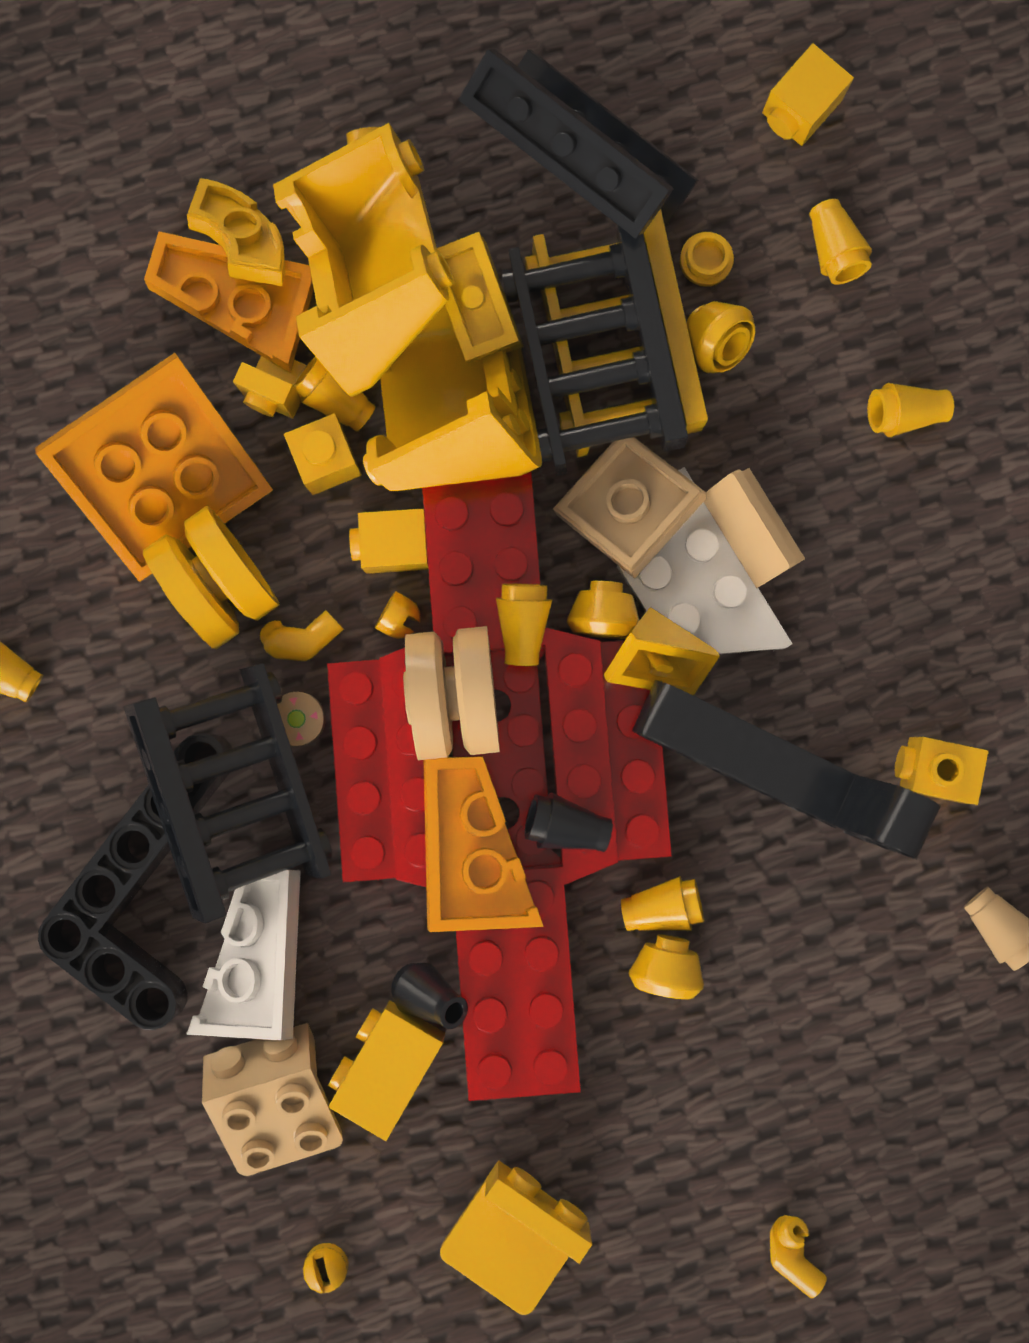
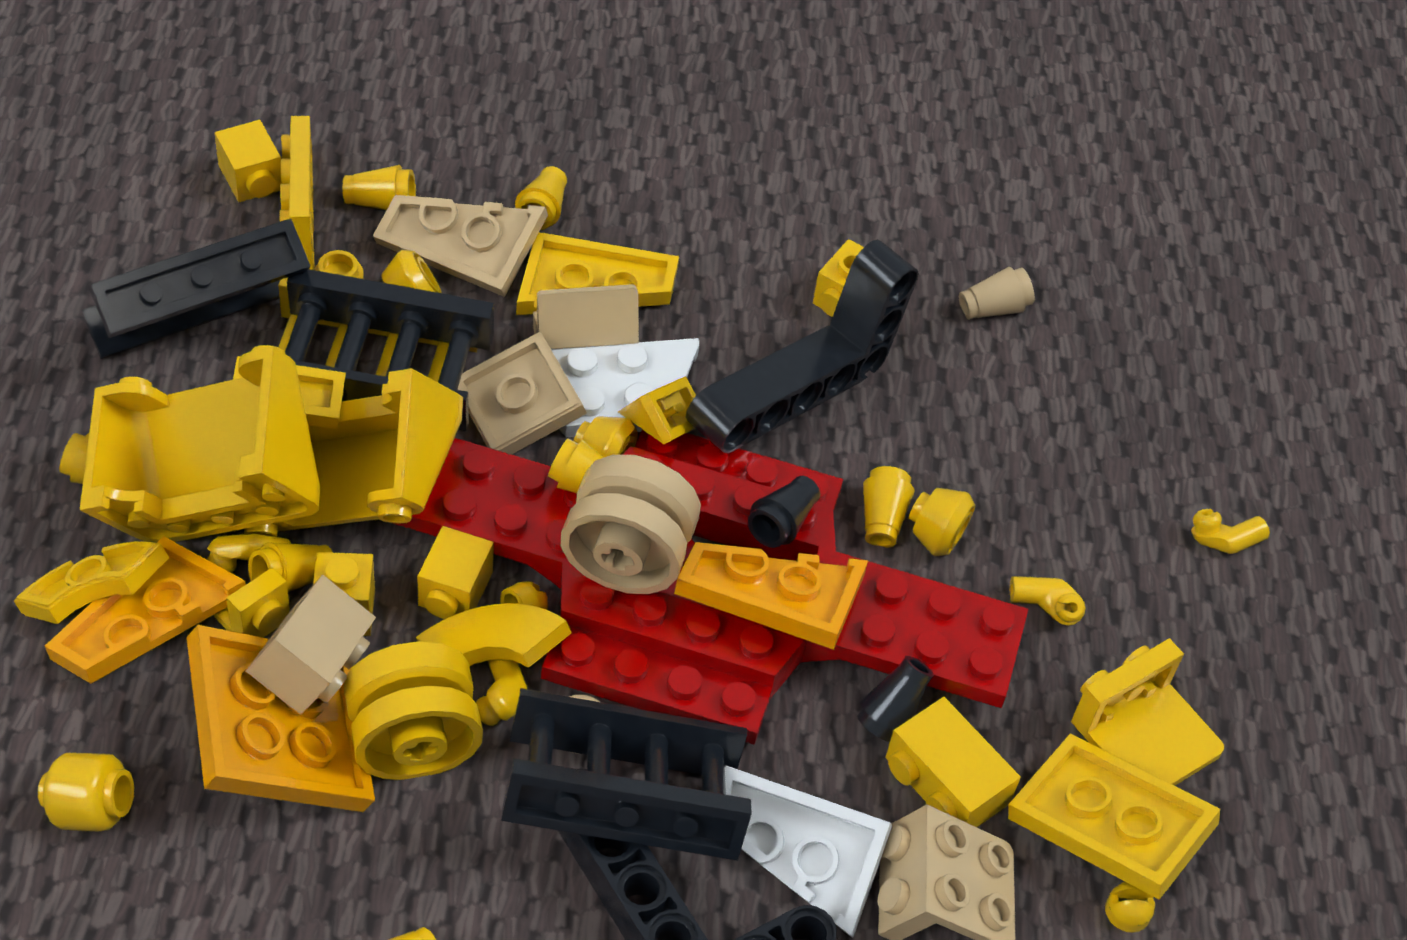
camera: 75 degrees left, 35 degrees down
(39, 345) = (86, 791): none -> yellow head
(227, 462) = (312, 646): none -> tan brick
(341, 607) = (500, 633): none -> yellow tile
(394, 1236) = (1114, 815): none -> yellow plate
(634, 1101) = (1051, 595): none -> yellow arm
(766, 174) = (297, 182): none -> yellow wing
(805, 355) = (463, 240): none -> tan wing
(825, 504) = (580, 263): none -> yellow wing

